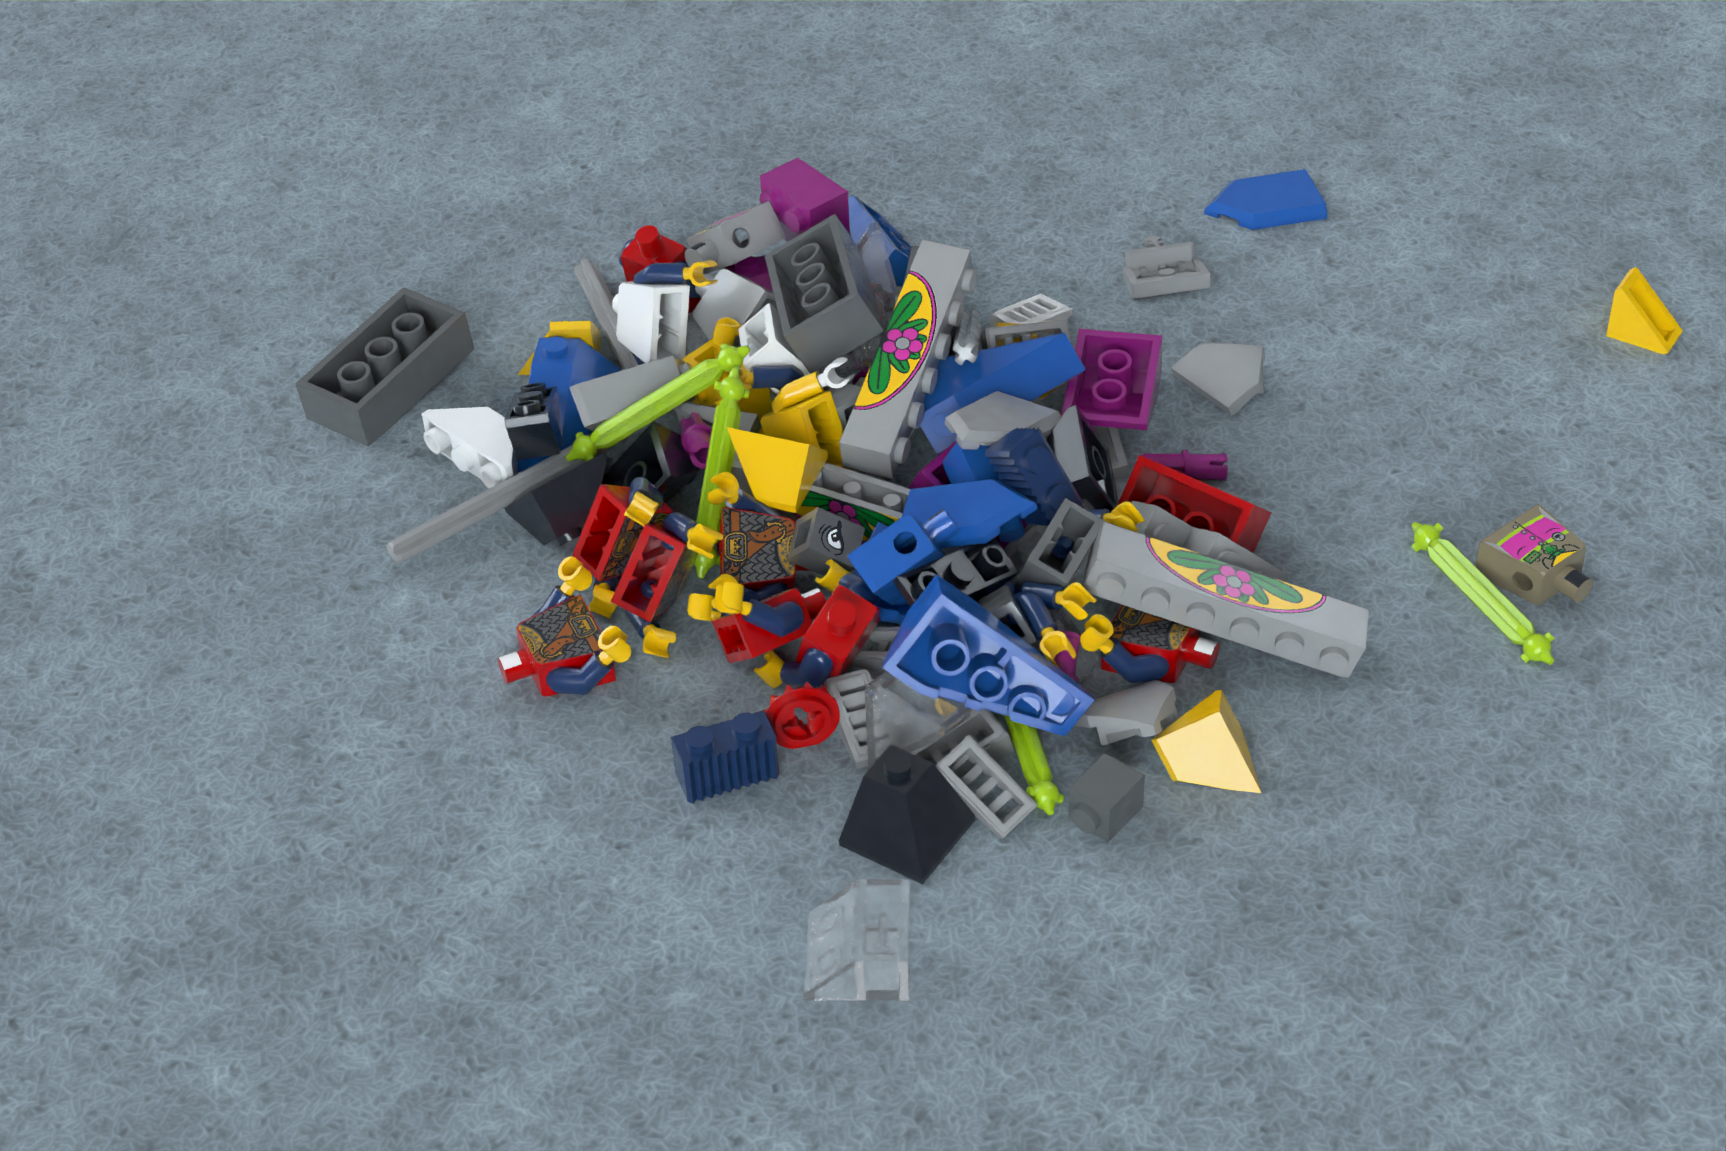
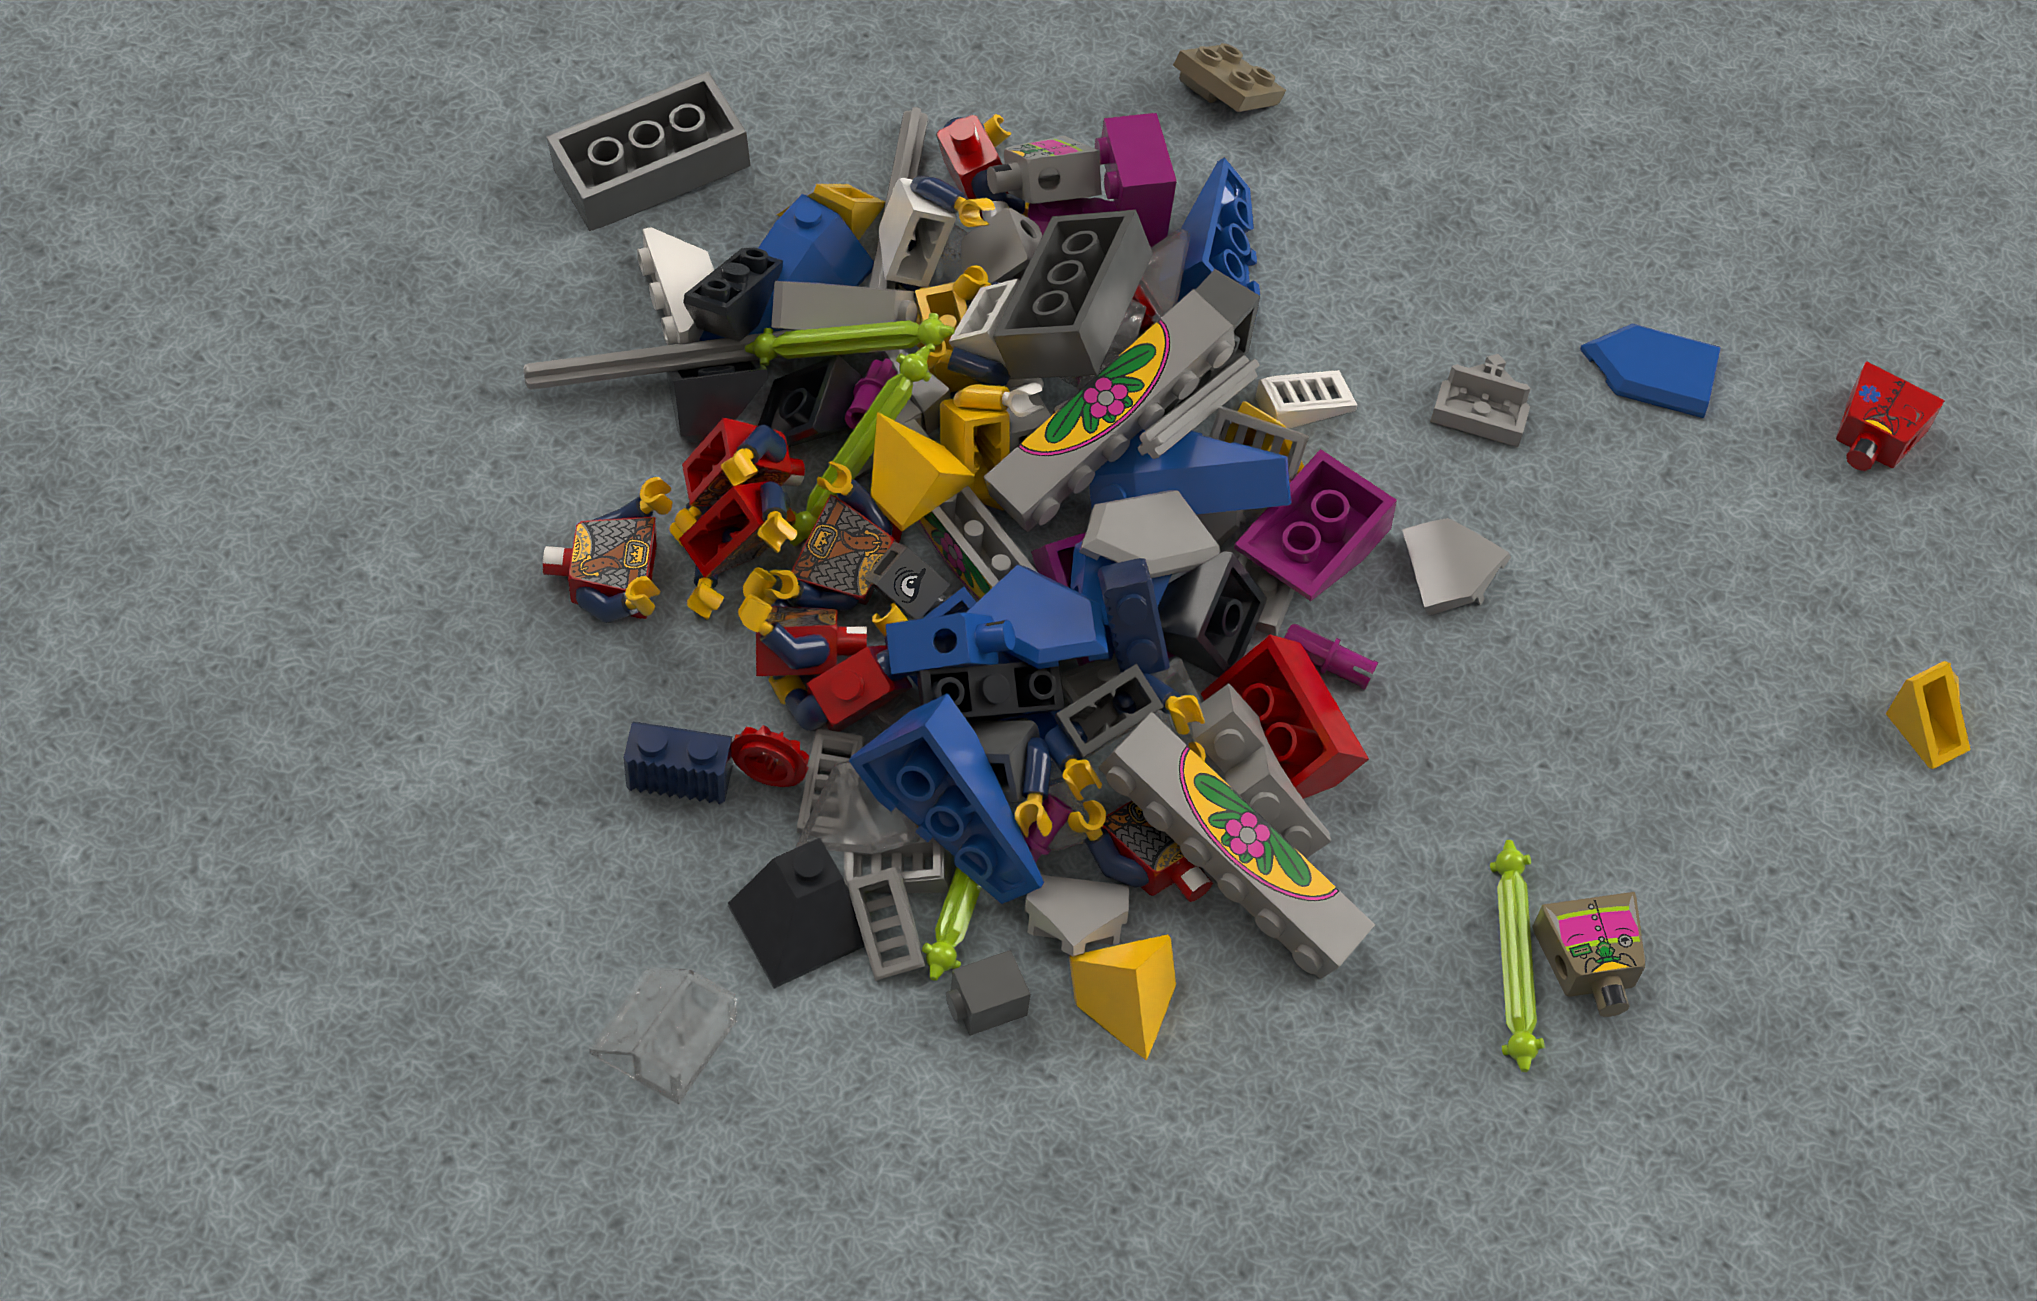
camera: 20 degrees right, 15 degrees up
(804, 146) = (1224, 75): none -> dark tan plate
(1453, 161) = (1884, 418): none -> red torso

